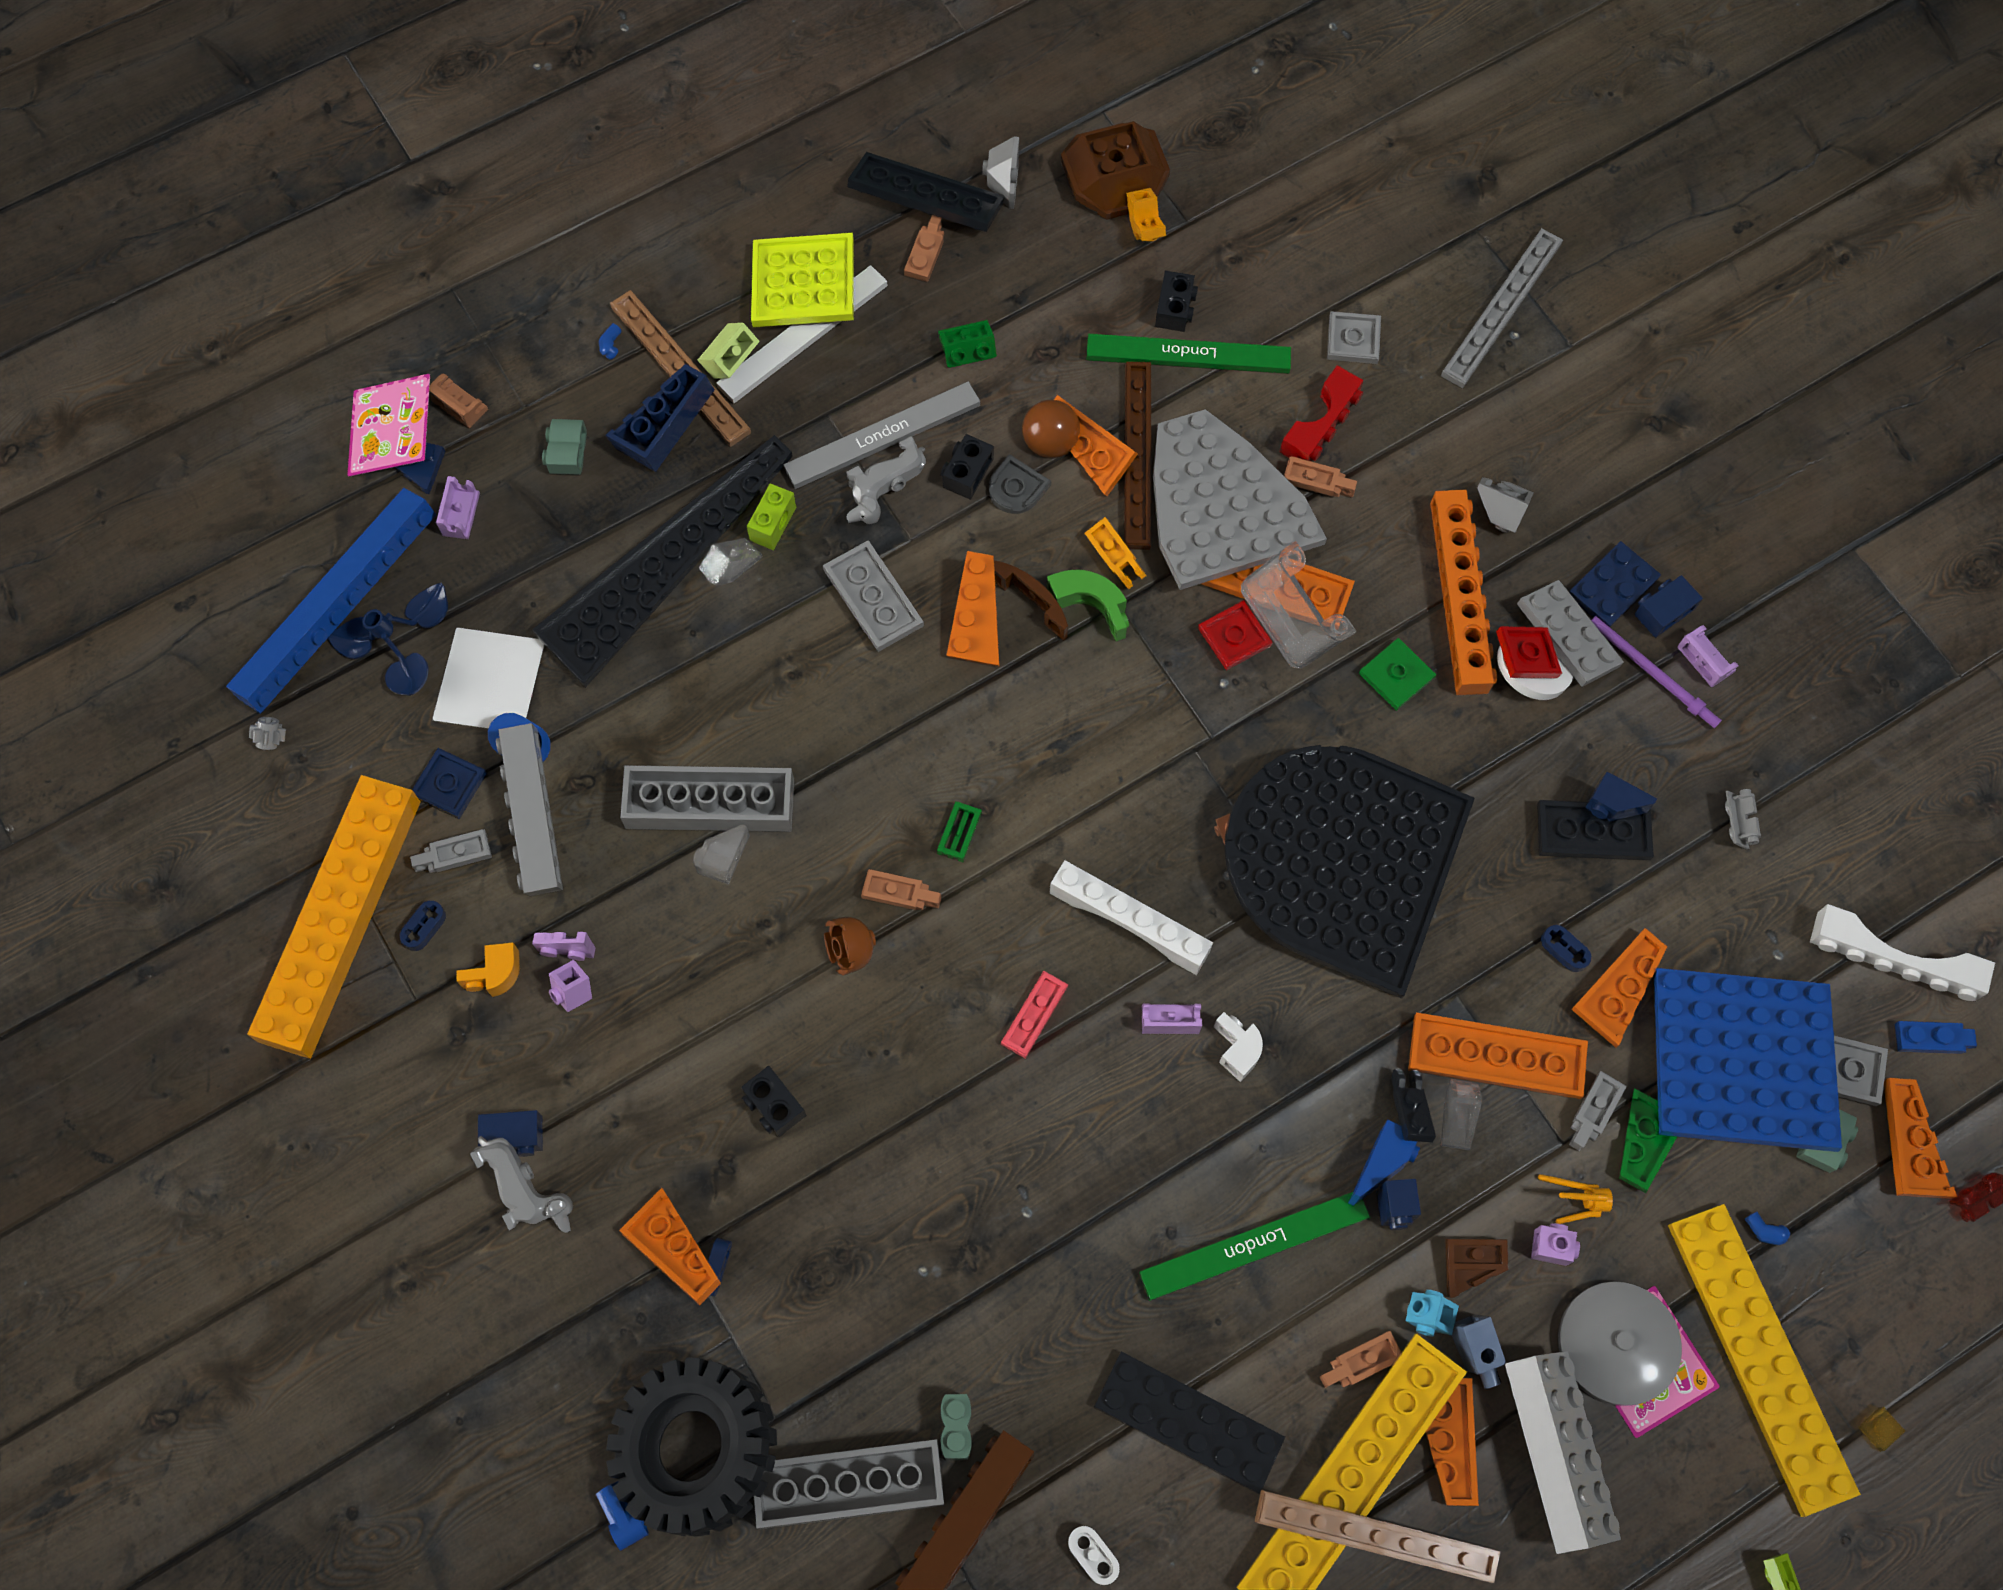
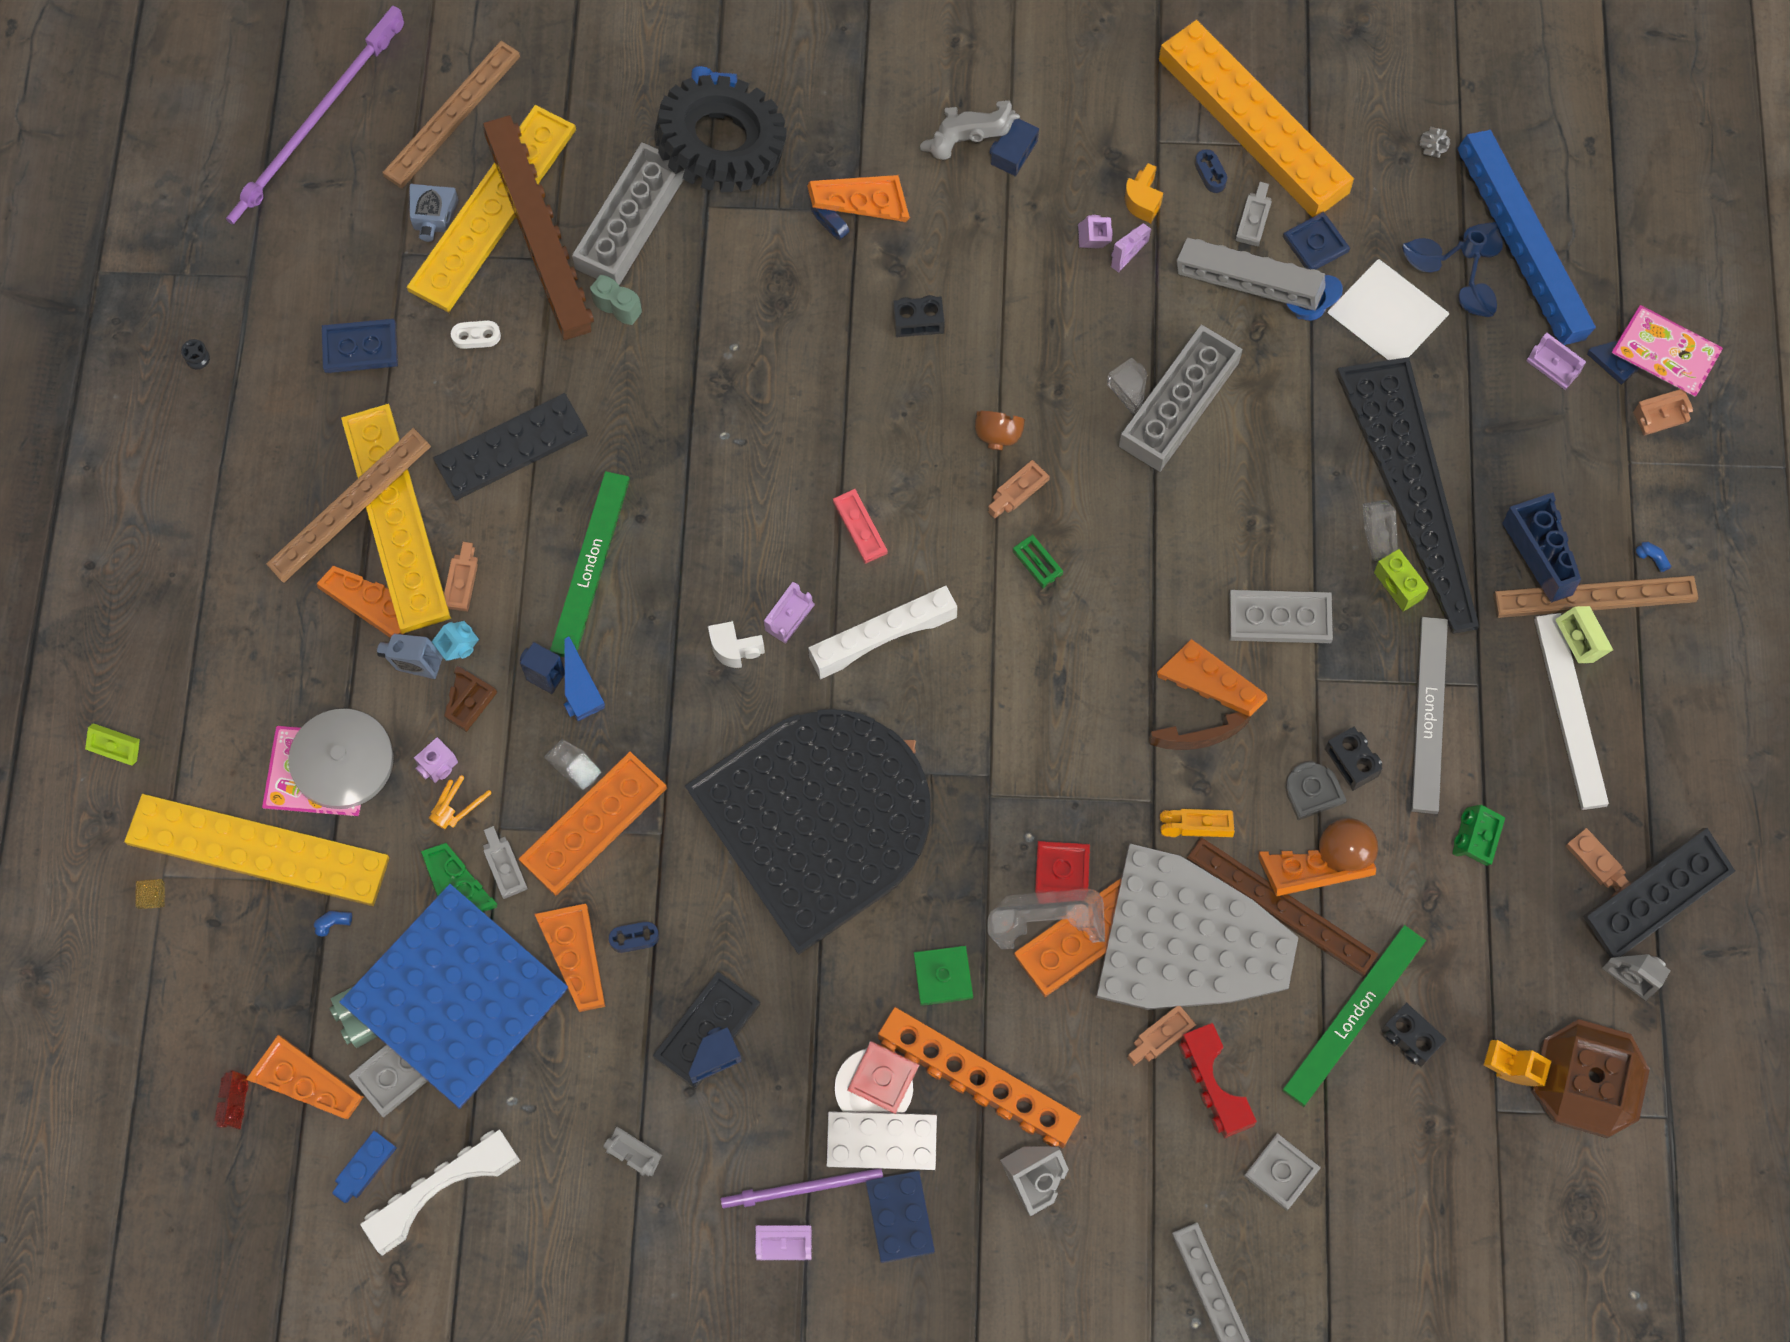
camera: 125 degrees right, 0 degrees up
(565, 446) = (1566, 466): sand green brick -> none
(803, 280) = (1623, 736): neon yellow plate -> none
(881, 479) = (1384, 683): light grey animal -> none
(1092, 589) = (1171, 785): bright green arch -> none
(1412, 1107) = (598, 727): black hinge -> none
(1563, 1452) = (304, 655): light grey brick -> none
(1668, 605) = (848, 1242): dark blue brick -> none

